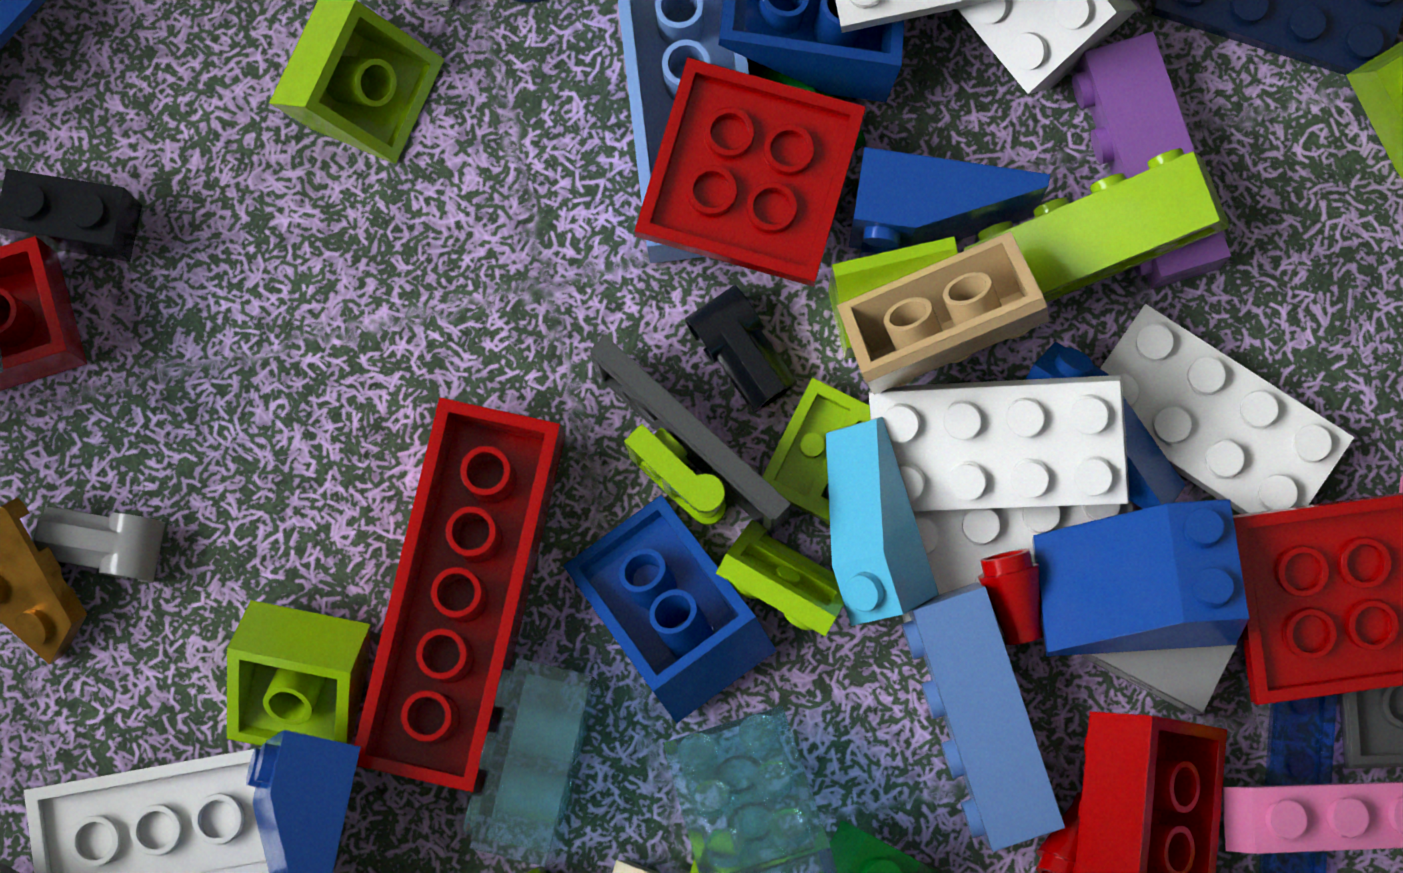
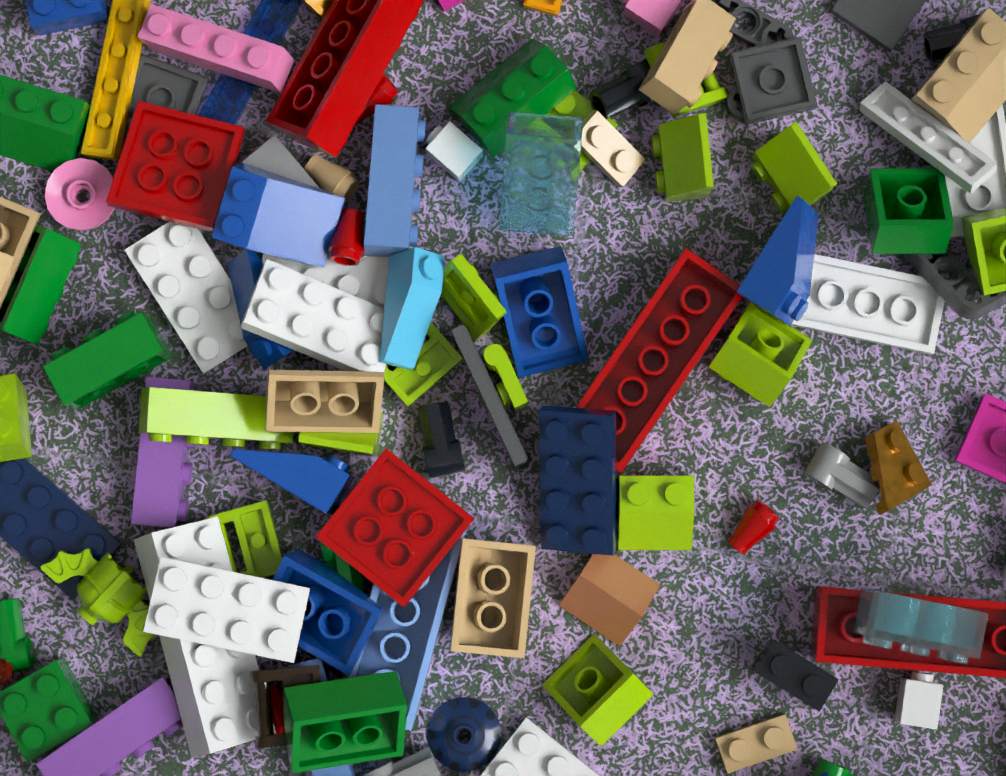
camera: 160 degrees left, 5 degrees up
(94, 100) = (756, 743): none -> tan plate
(211, 413) = (753, 526): none -> red cone
(369, 375) = (655, 512): none -> lime slope
(391, 226) = (610, 596): none -> nougat slope
(503, 365) = (578, 479): none -> dark blue plate
(531, 762) = (647, 253): clear light blue brick -> none
(562, 139) = (492, 598): none -> tan slope
(910, 807) = (453, 150): none -> white brick
(955, 93) = (256, 537): none -> lime plate
(1080, 685) = (332, 177): none -> tan cone
(1303, 256) = (107, 360): none -> green brick

